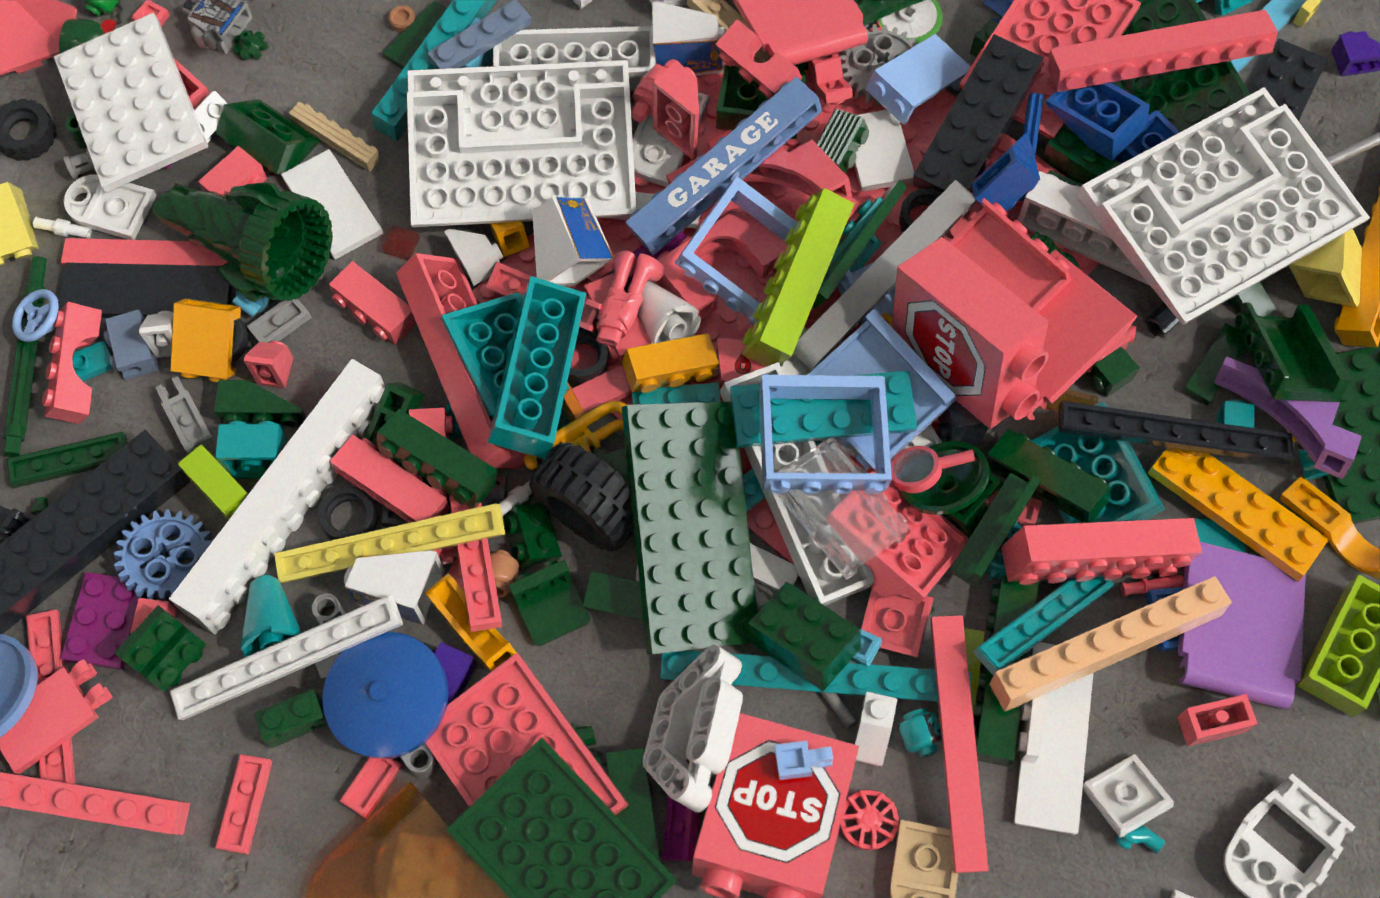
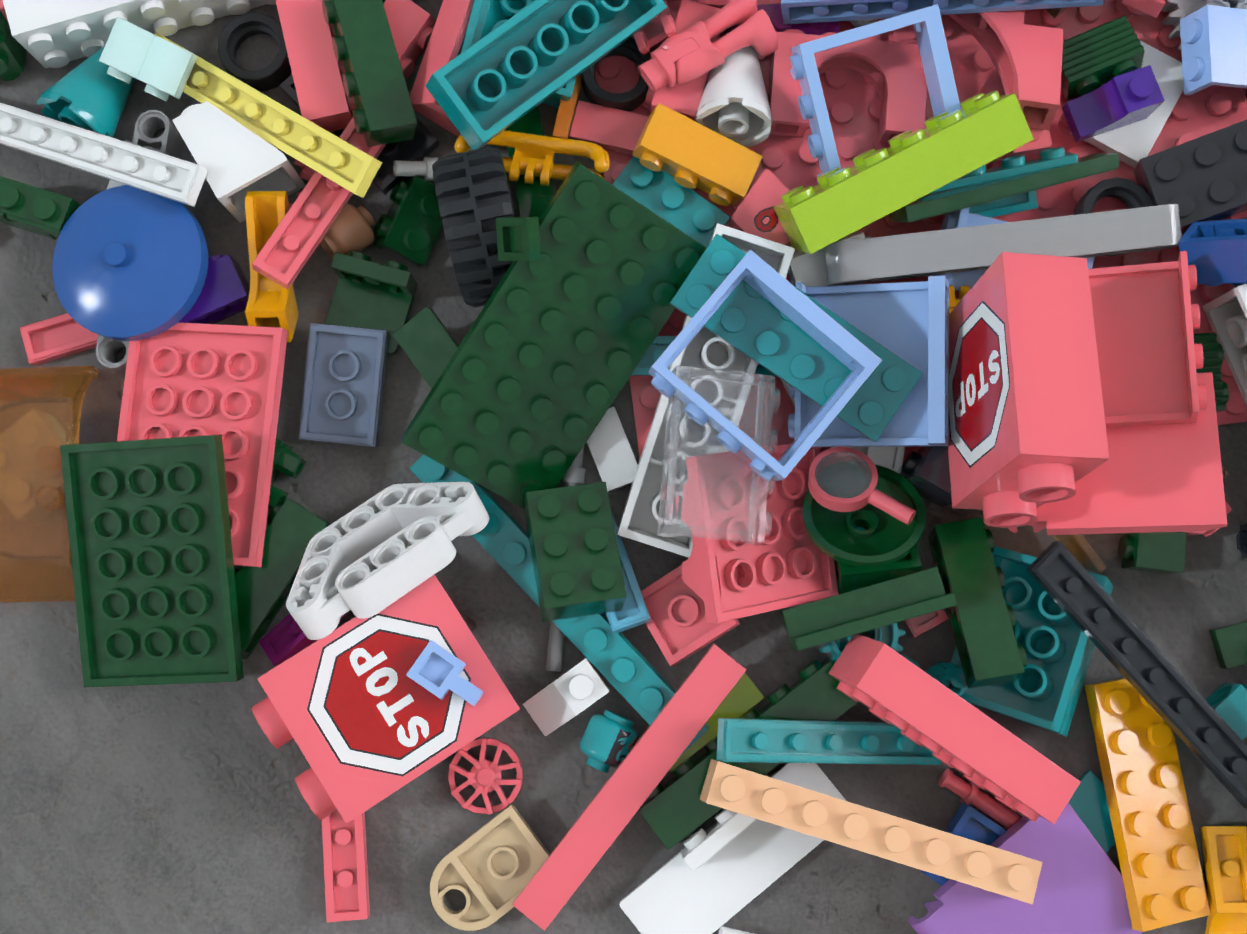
camera: 40 degrees right, 15 degrees up
(293, 566) = (147, 58): none -> light aqua brick
(576, 664) = (343, 385): none -> sand blue tile
(627, 473) = (518, 239): none -> dark green plate
(872, 157) = (1114, 105): none -> dark purple arch

